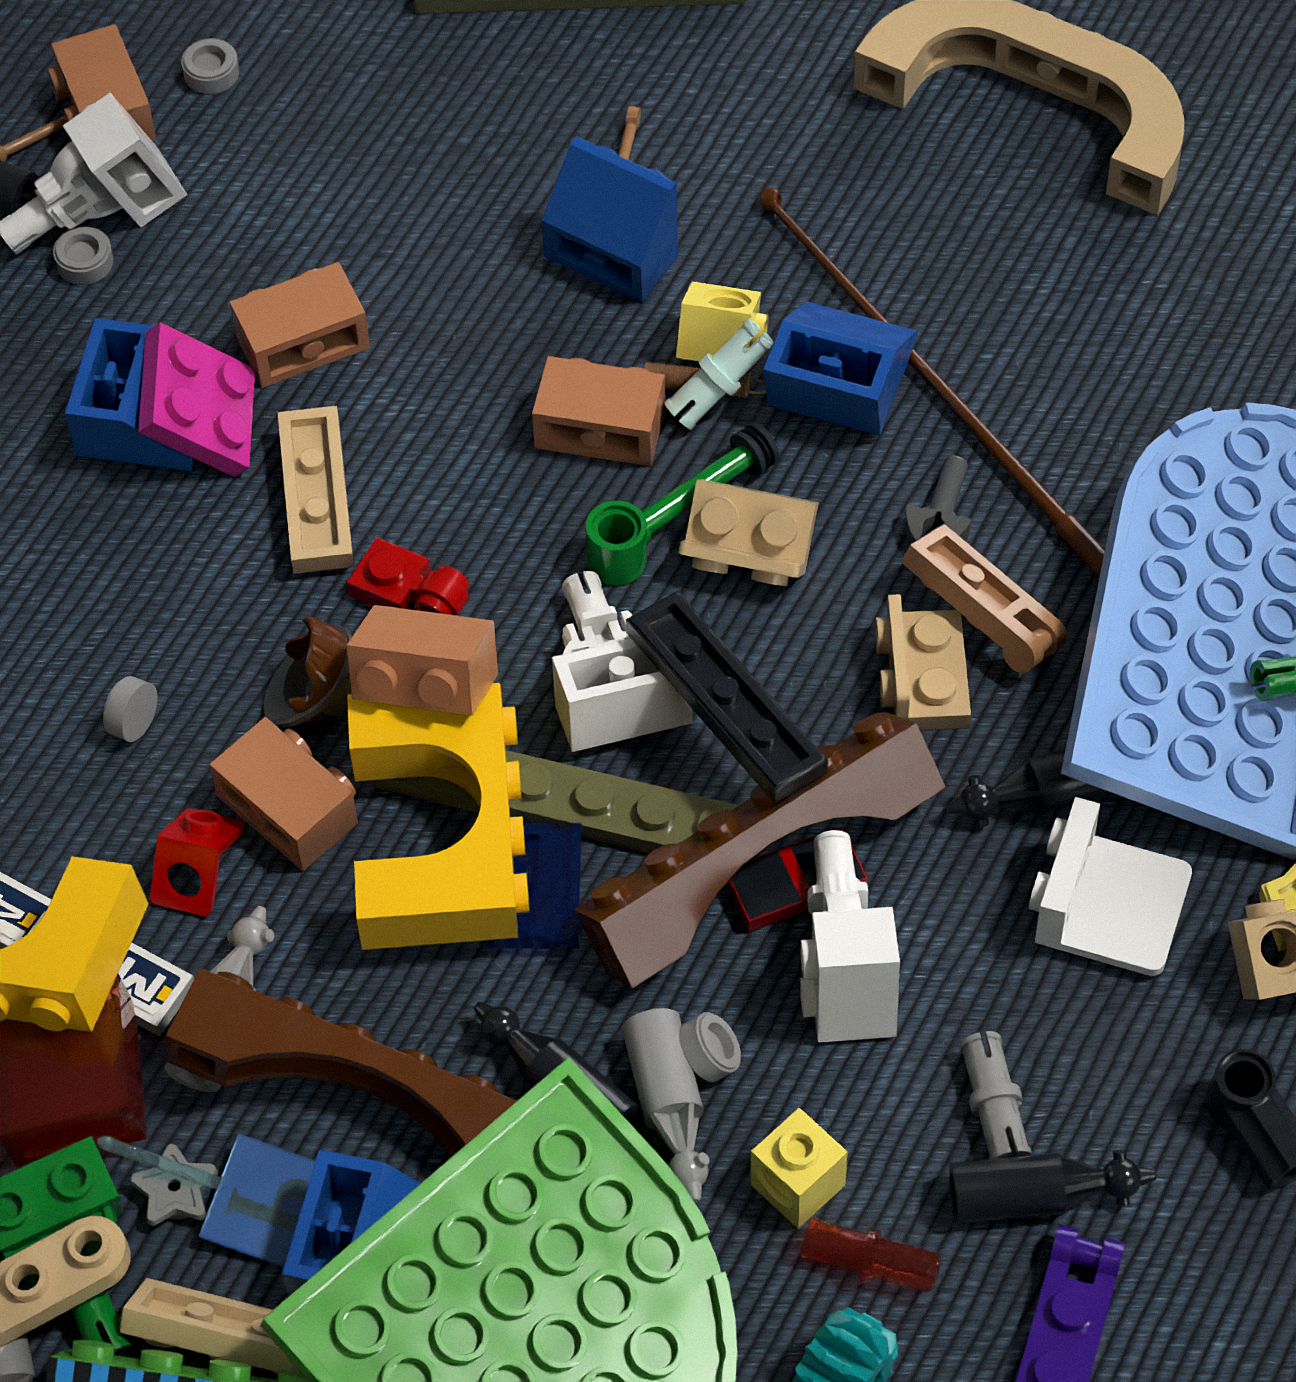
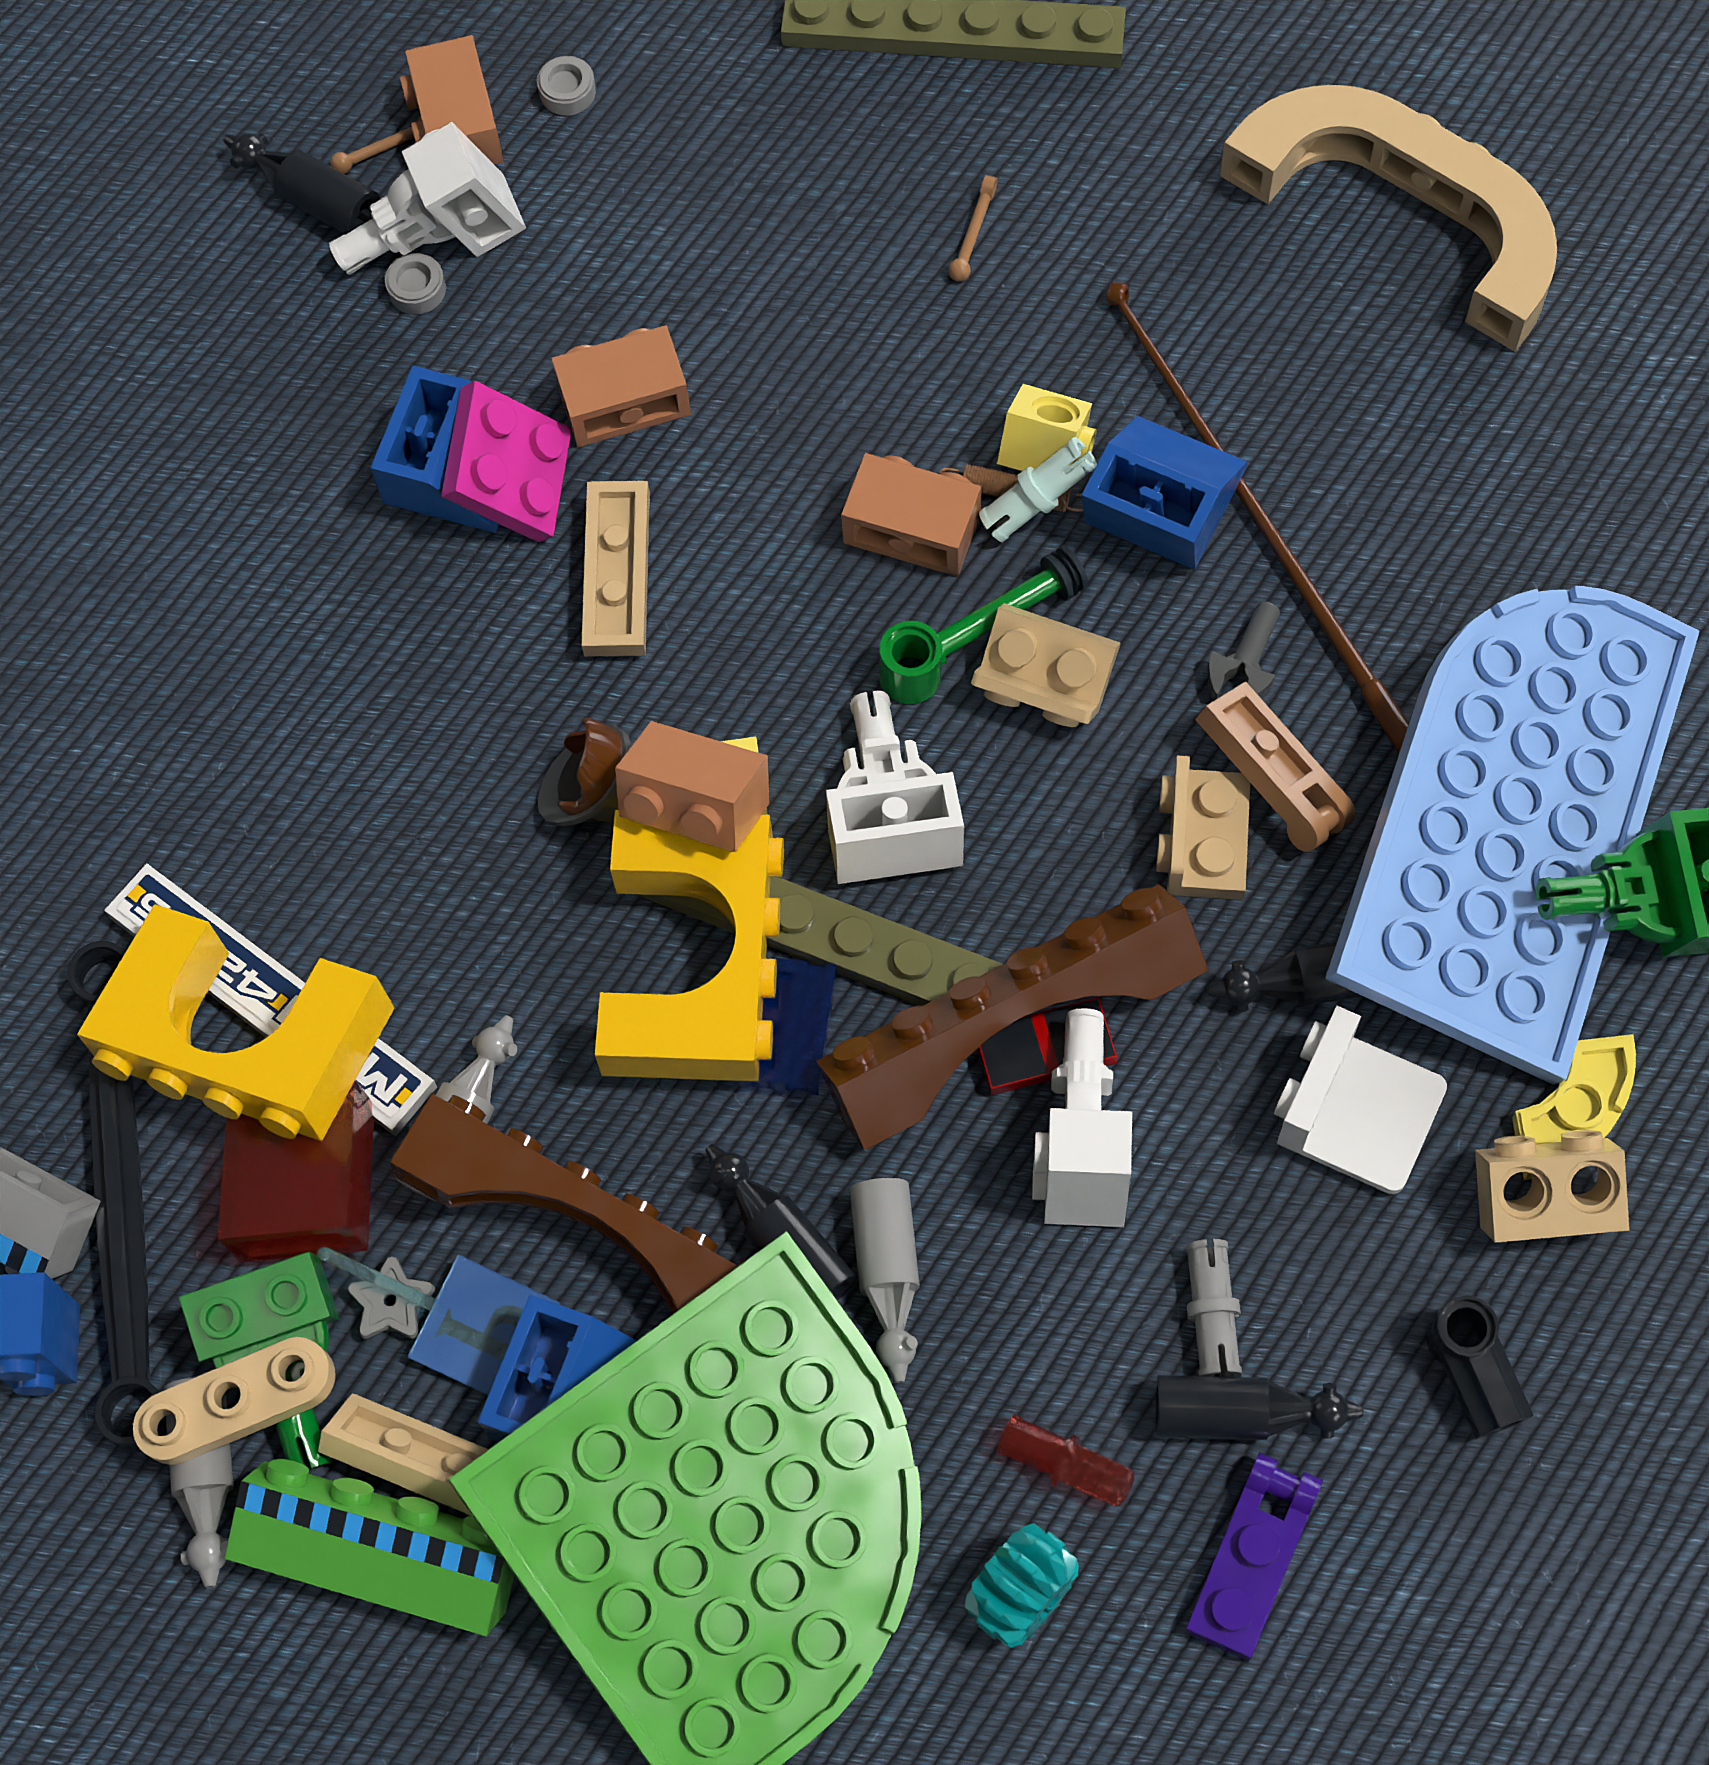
camera: 10 degrees right, 10 degrees up
(130, 708) = (404, 787): light grey tile -> none
(197, 840) = (453, 940): red bracket -> none
(285, 792) = (546, 895): nougat brick -> none
(399, 577) = (685, 672): red plate -> none
(611, 220) = (949, 306): blue slope -> none
(710, 1046) = (934, 1220): light grey tile -> none
(726, 697) = (995, 857): black tile -> none
(798, 1168) = (1005, 1361): light yellow brick -> none

